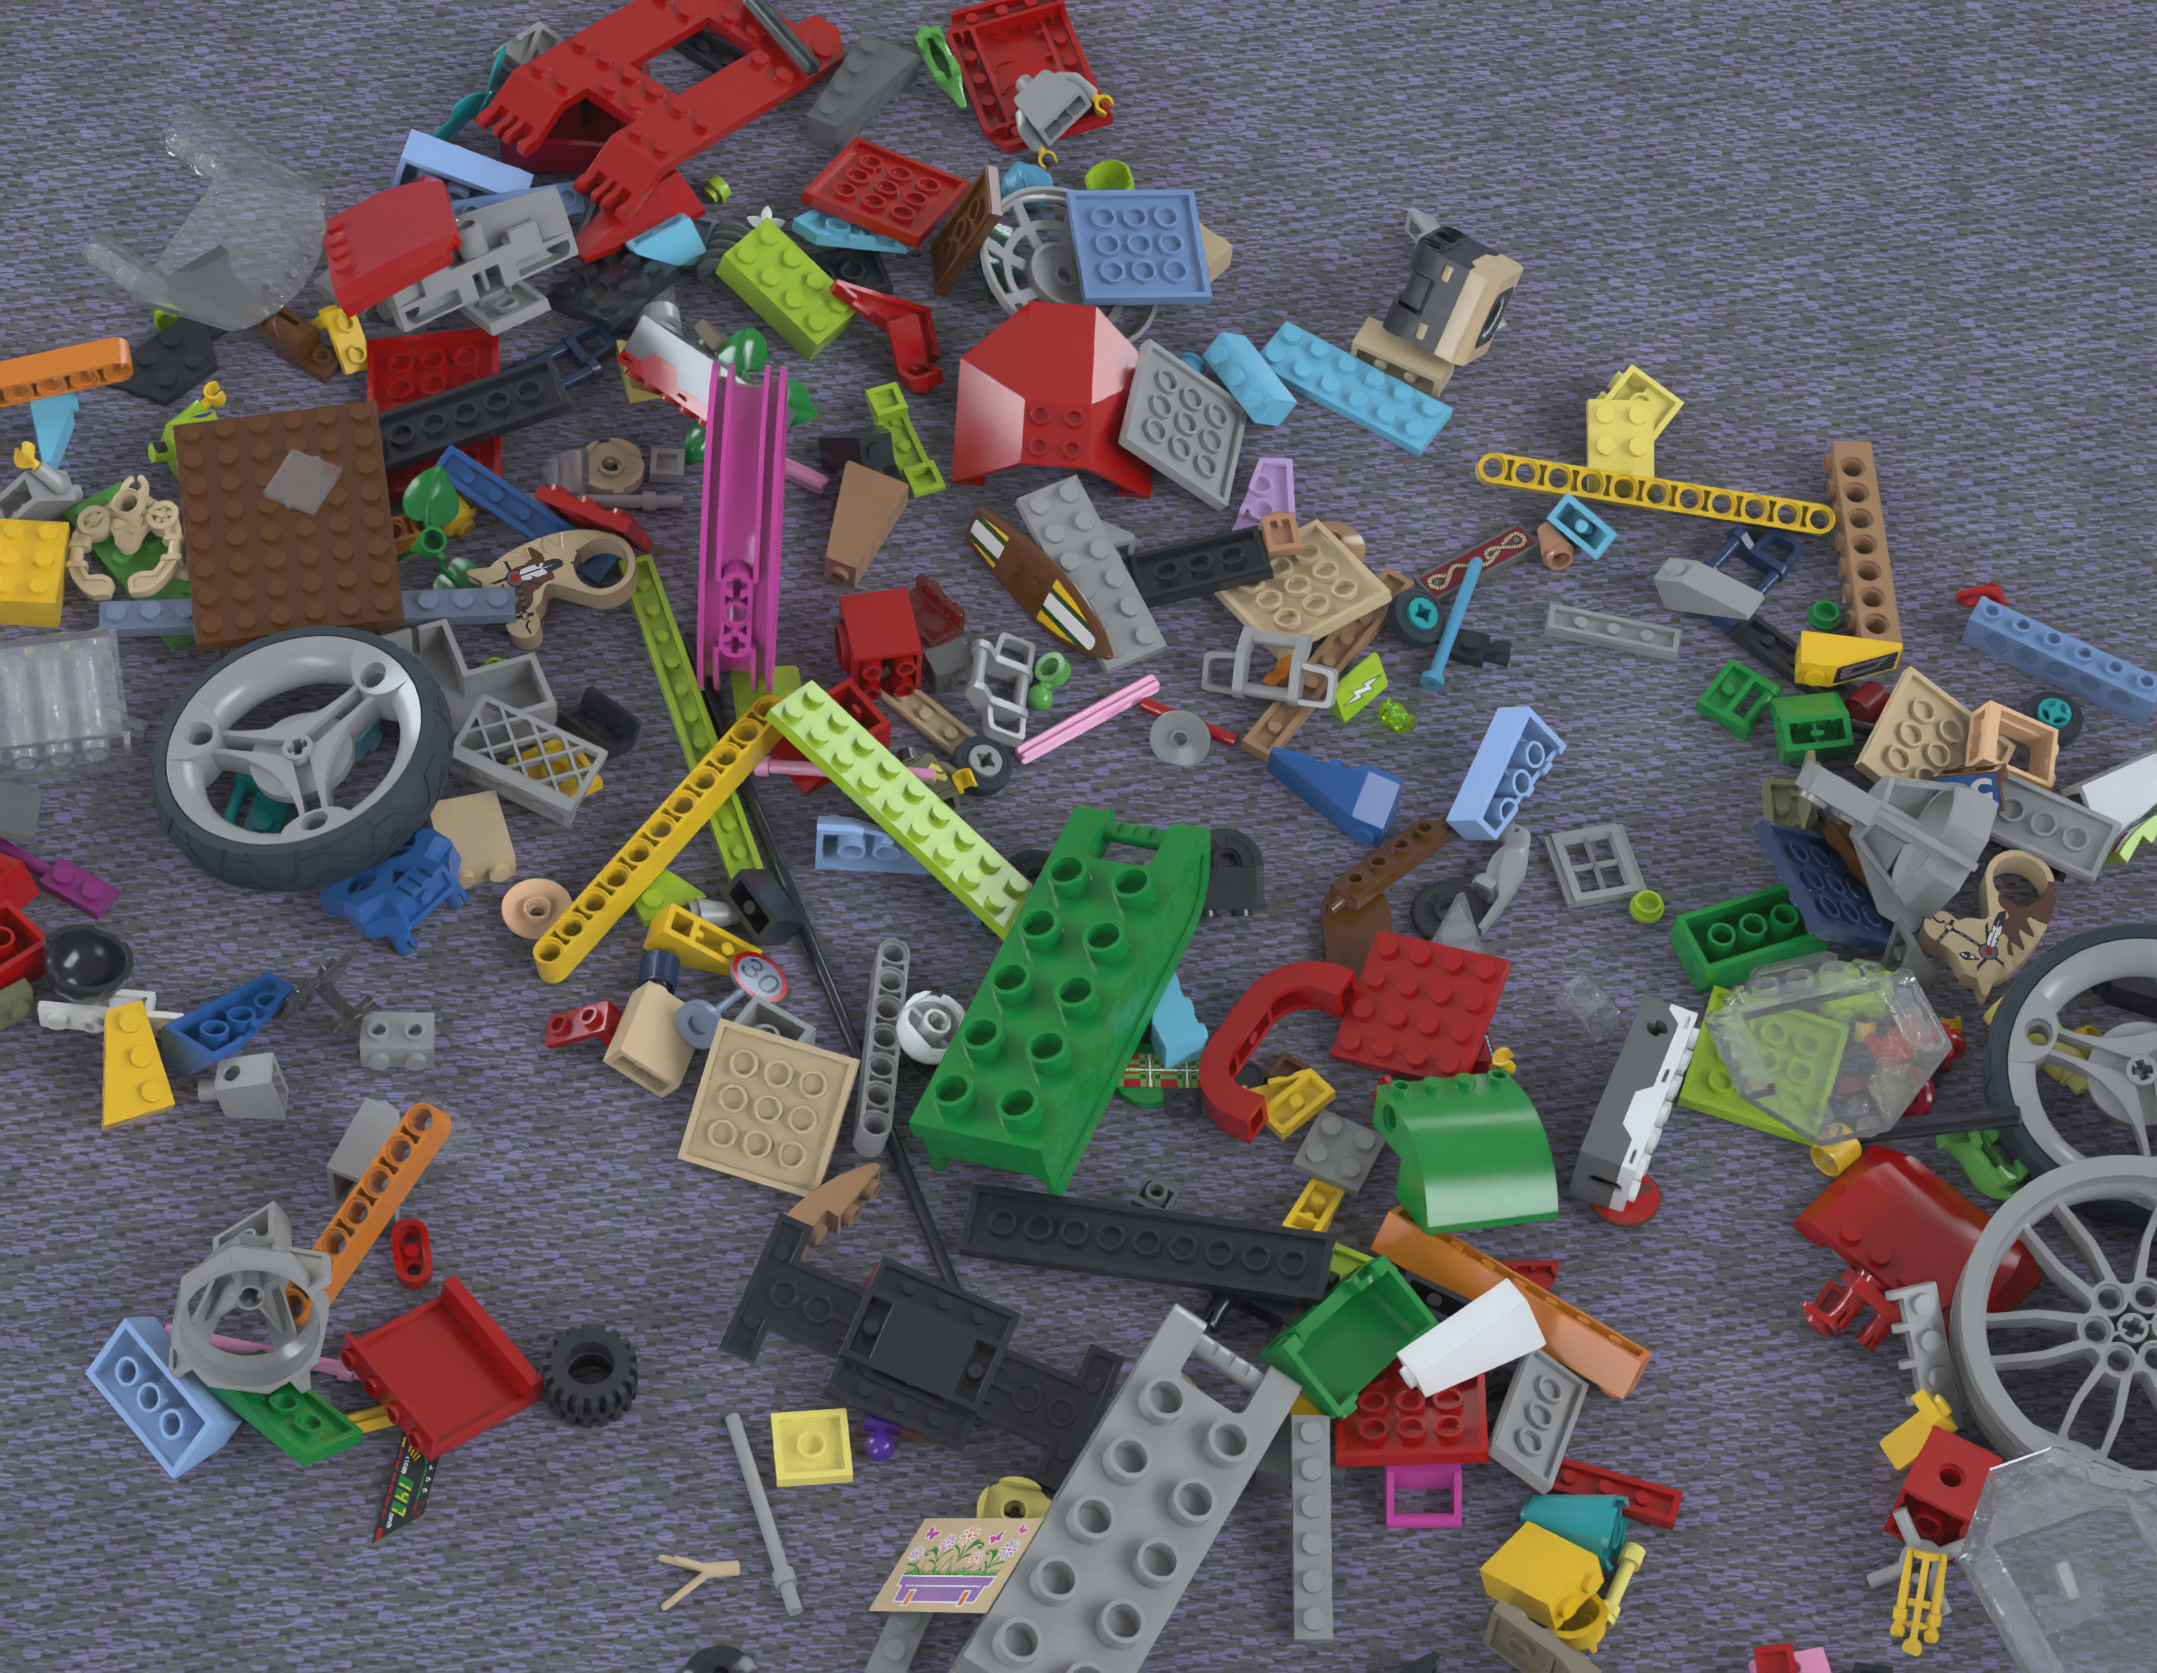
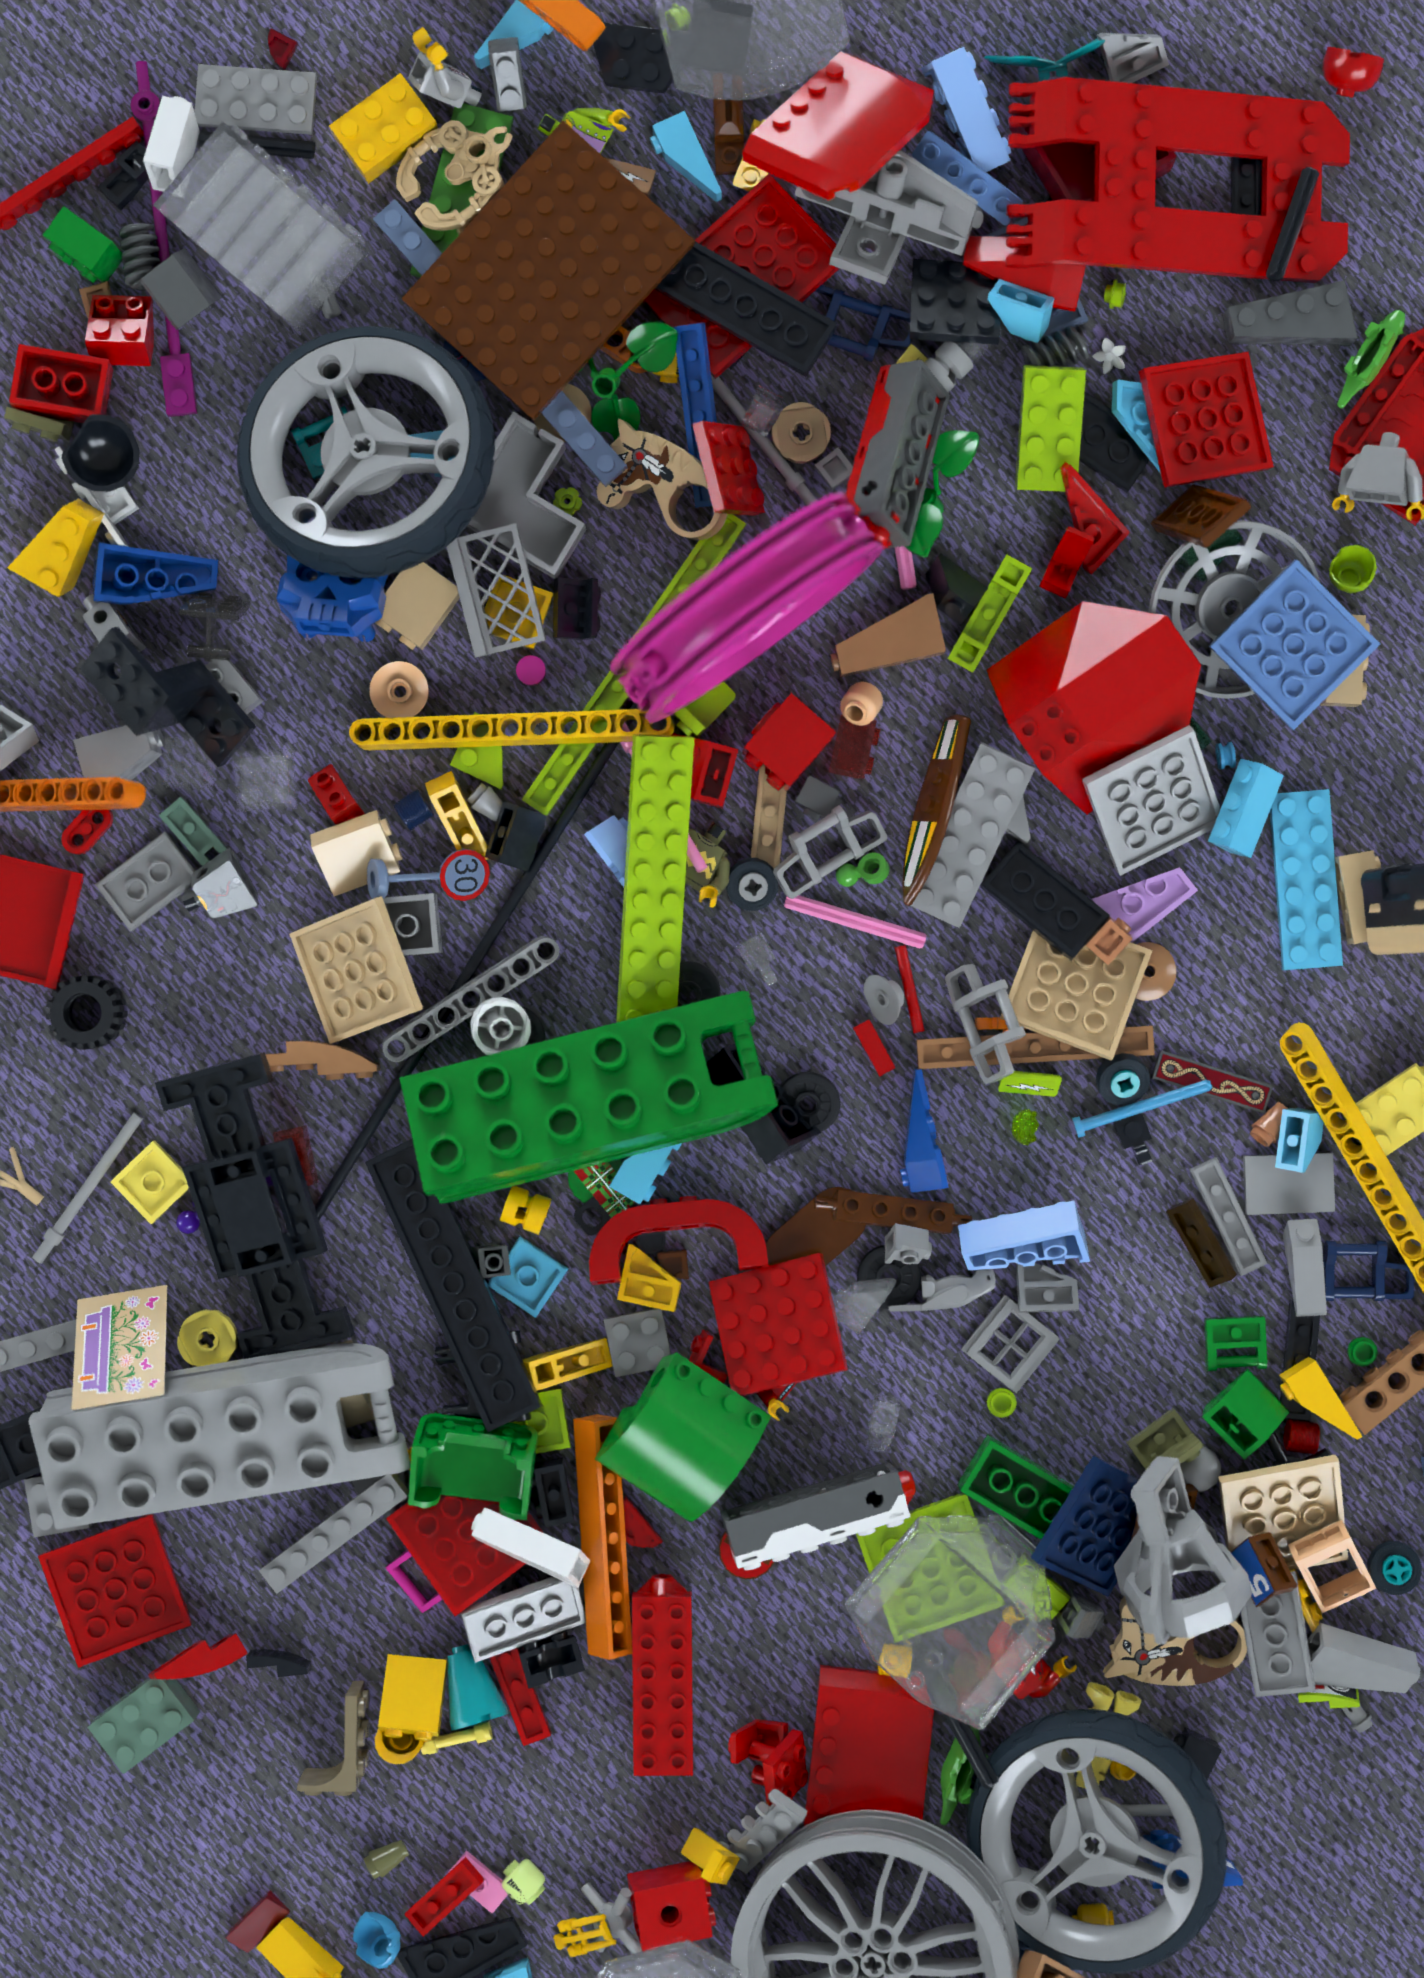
camera: 60 degrees right, 35 degrees up
(86, 448) = (507, 74): none -> brick
(287, 384) = (682, 151): none -> medium azure slope
(302, 482) = (581, 254): clear piece -> none
(364, 1061) = (167, 697): none -> black bracket
(511, 1168) = (191, 830): none -> sand green plate
(511, 1244) = (147, 881): none -> light grey tile
(512, 1078) = (265, 780): none -> clear plate
(579, 1171) = (221, 887): none -> torso
(619, 803) = (531, 670): none -> dark pink tile
(712, 339) = (963, 417): dark tan plate -> none
(905, 575) = (861, 703): none -> light nougat head
(1023, 176) = (1303, 510): dark azure hair -> none
(1051, 807) = (758, 955): none -> clear plate
(1124, 1147) = (536, 1212): none -> yellow wheel
(1202, 1190) = (531, 1278): none -> medium azure tile
(1219, 780) = (874, 1047): none -> red piece
(1438, 869) = (907, 1244): none -> light grey brick
(1565, 802) = (1045, 1290): none -> light grey wing
(1602, 1432) = (551, 1659): none -> black cylinder
(1620, 661) = (1201, 1243): none -> dark brown plate
(1621, 573) = (1286, 1191): none -> light grey tile
(1703, 1348) = (662, 1678): none -> red piece
(1820, 1622) = (523, 1881): none -> yellowish green head

